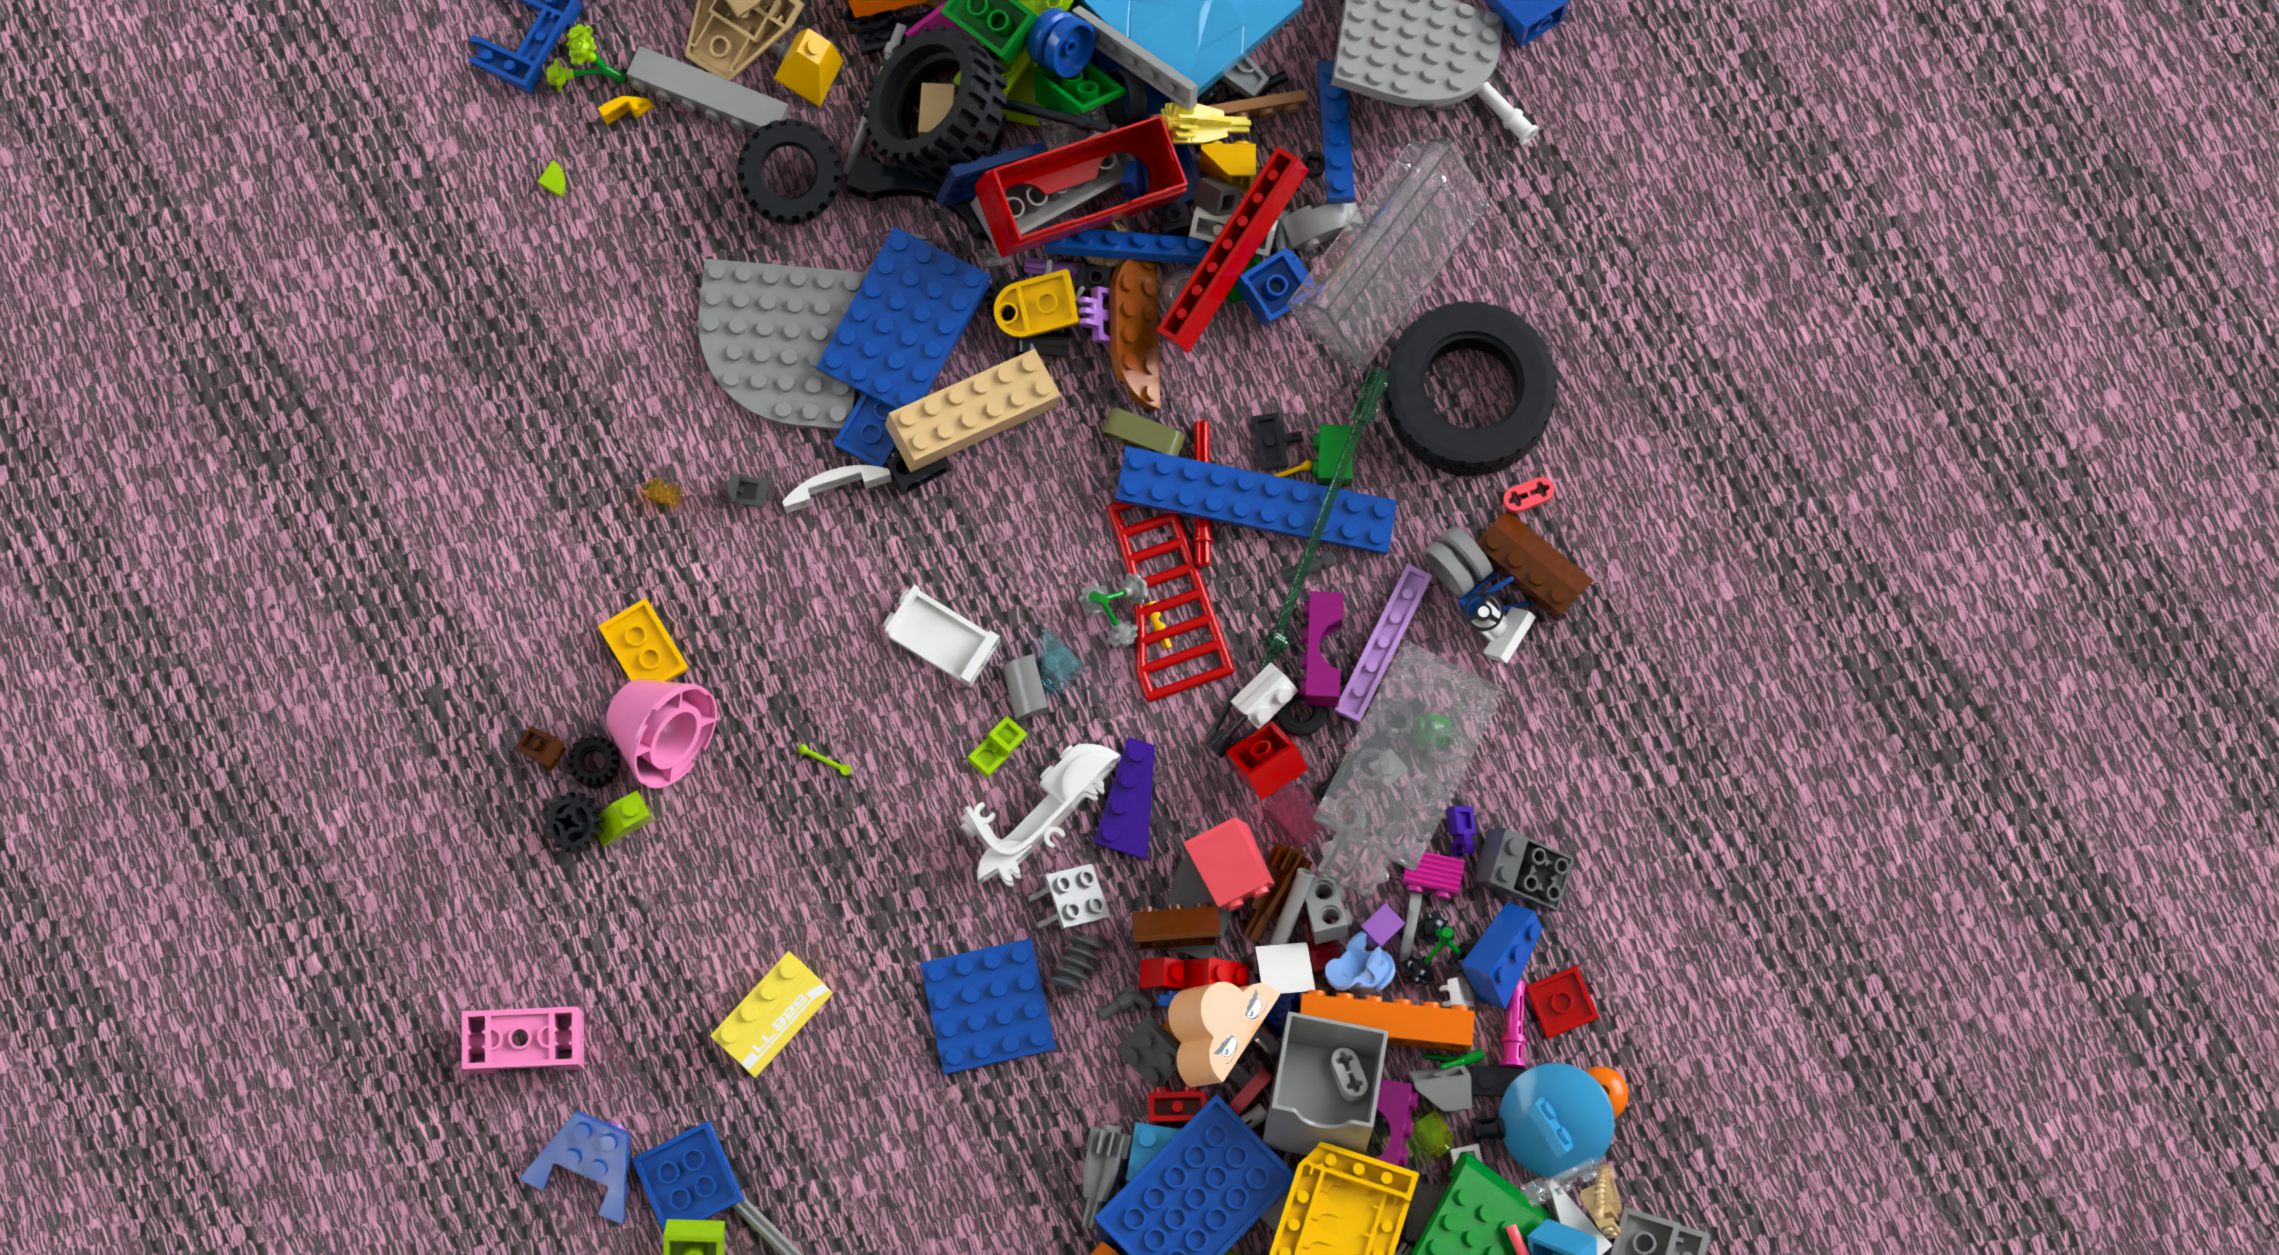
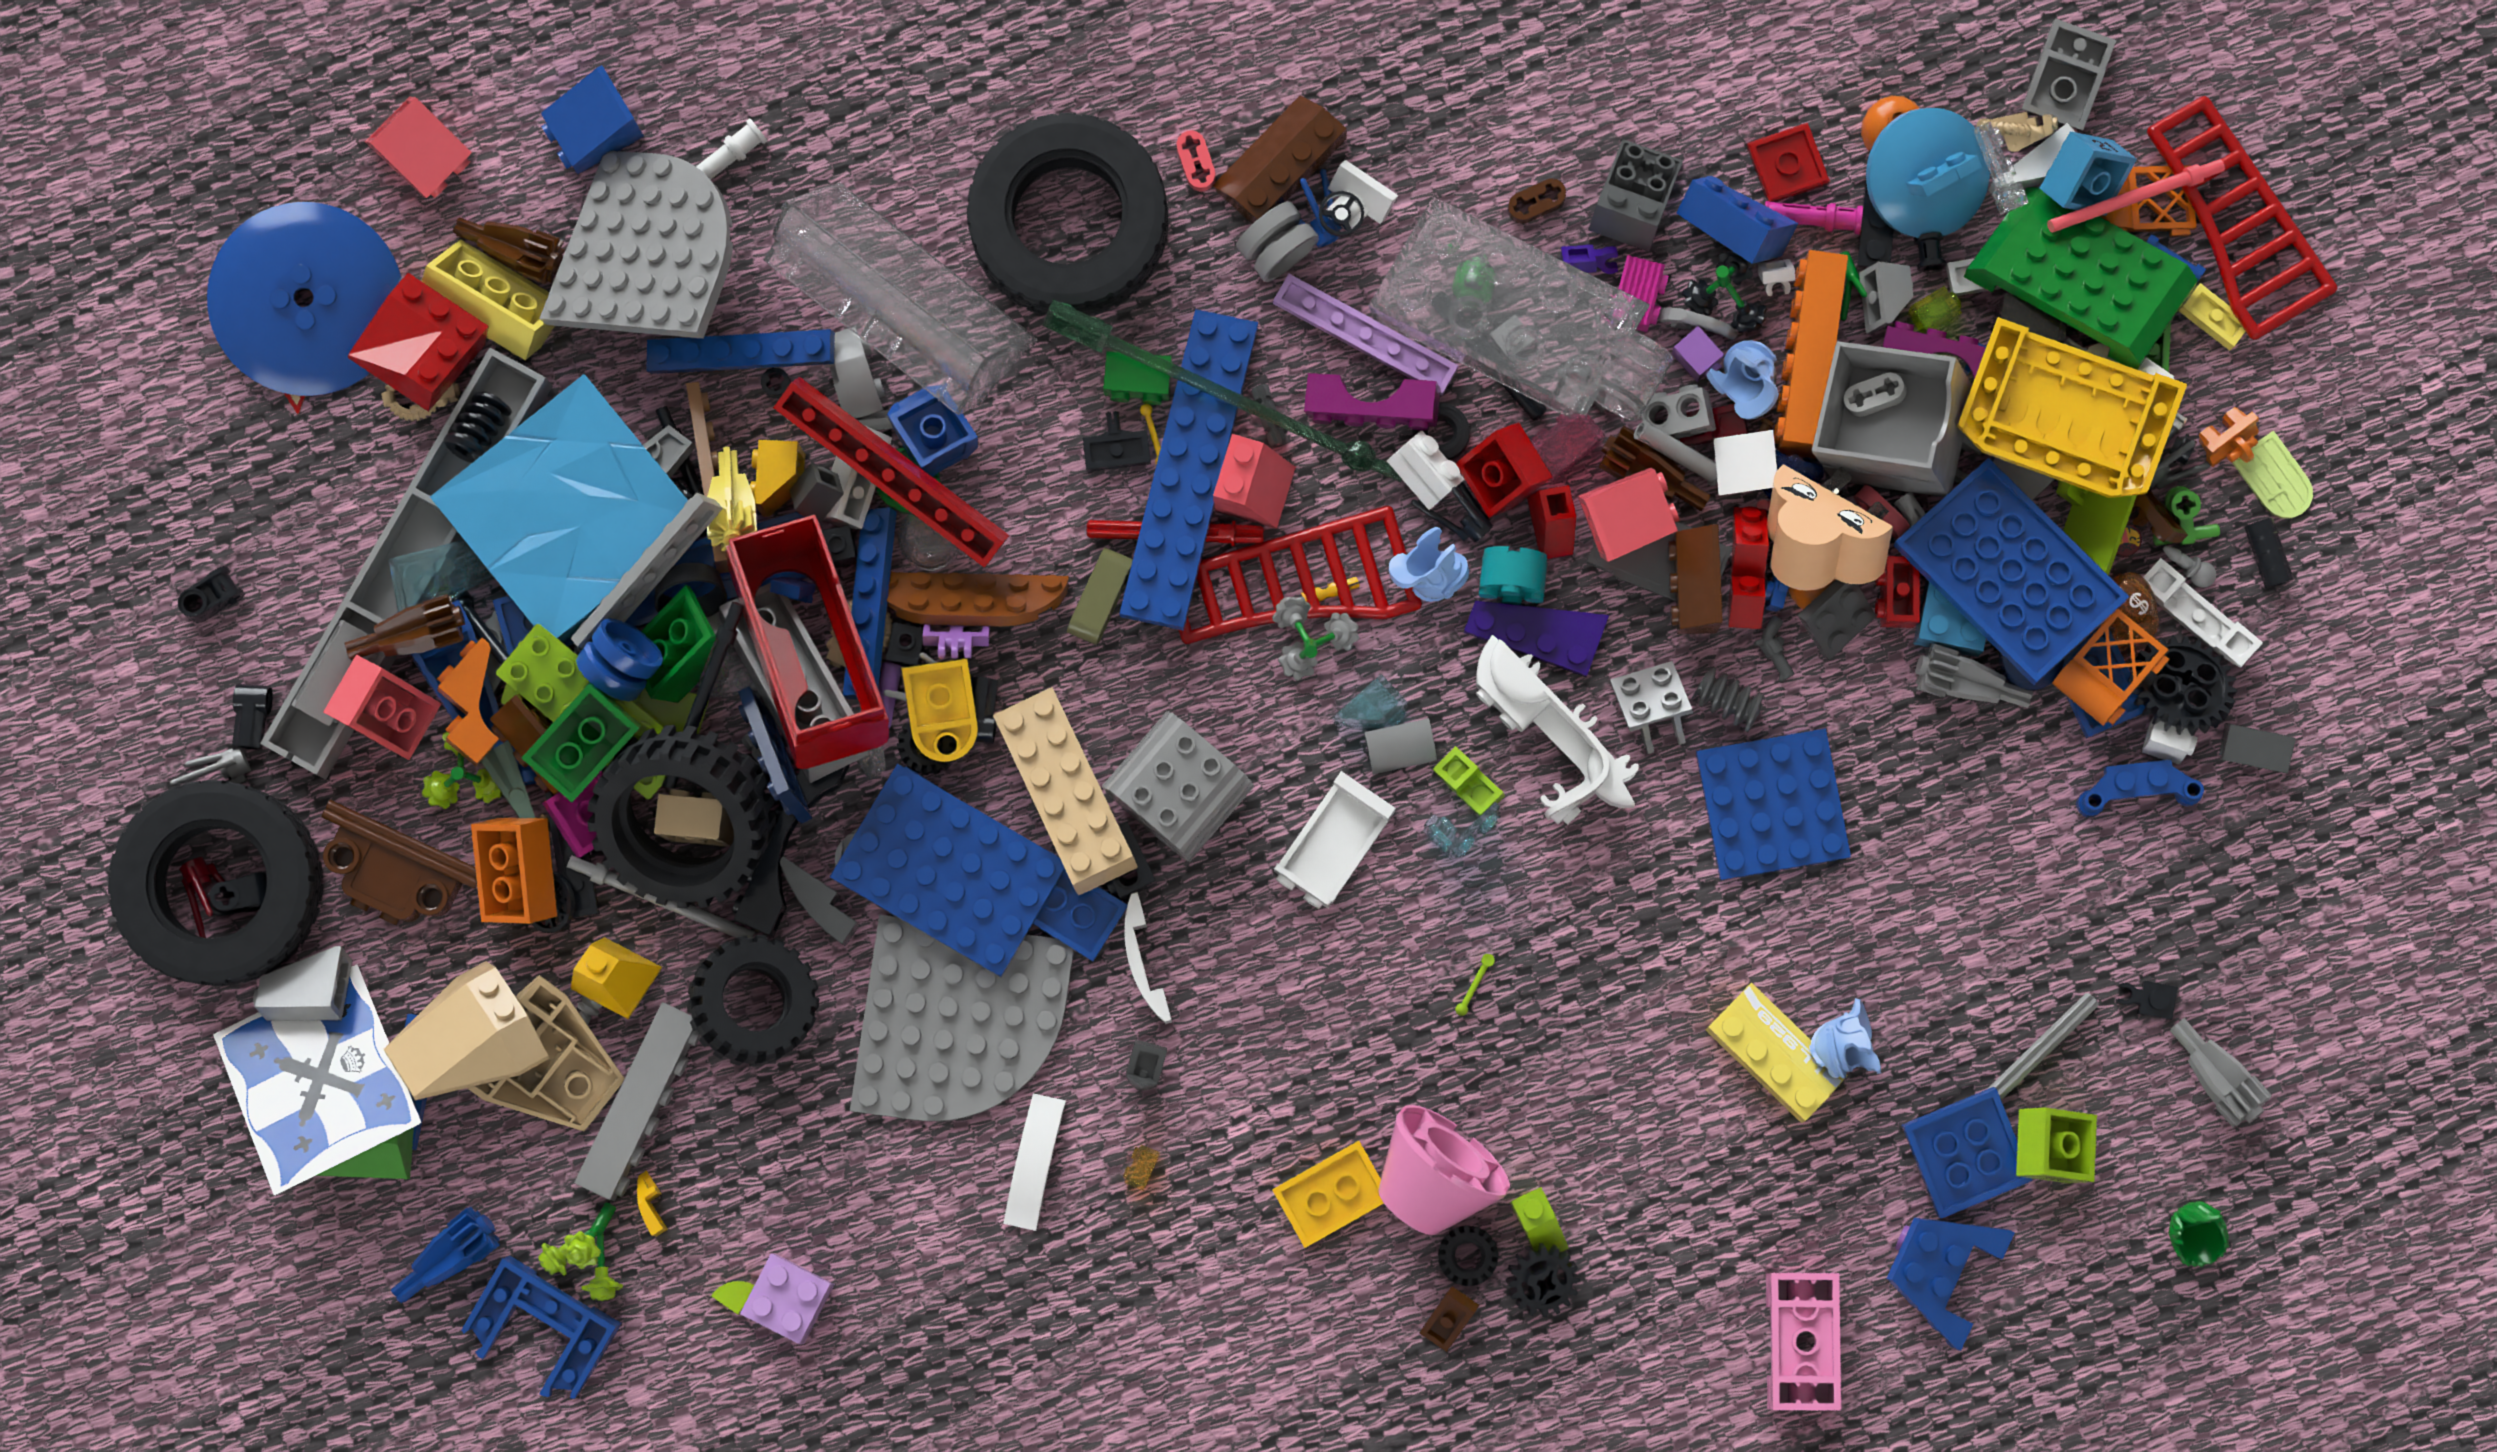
camera: 80 degrees left, 5 degrees up
(549, 217) = (787, 1299): none -> lavender brick
(668, 406) = (1033, 1162): none -> white slope
(779, 1072) = (1845, 1043): none -> light blue helmet
(875, 223) = (819, 902): none -> dark grey slope
(948, 724) = (1443, 832): none -> clear light blue bracket
(978, 499) = (1178, 786): none -> light grey piece
(1174, 772) = (1513, 575): none -> teal brick
(1178, 702) = (1428, 570): none -> light blue helmet
(1224, 806) = (1553, 521): none -> red slope
(1245, 551) = (1253, 482): none -> coral slope
(1517, 781) = (1533, 194): none -> reddish brown beam

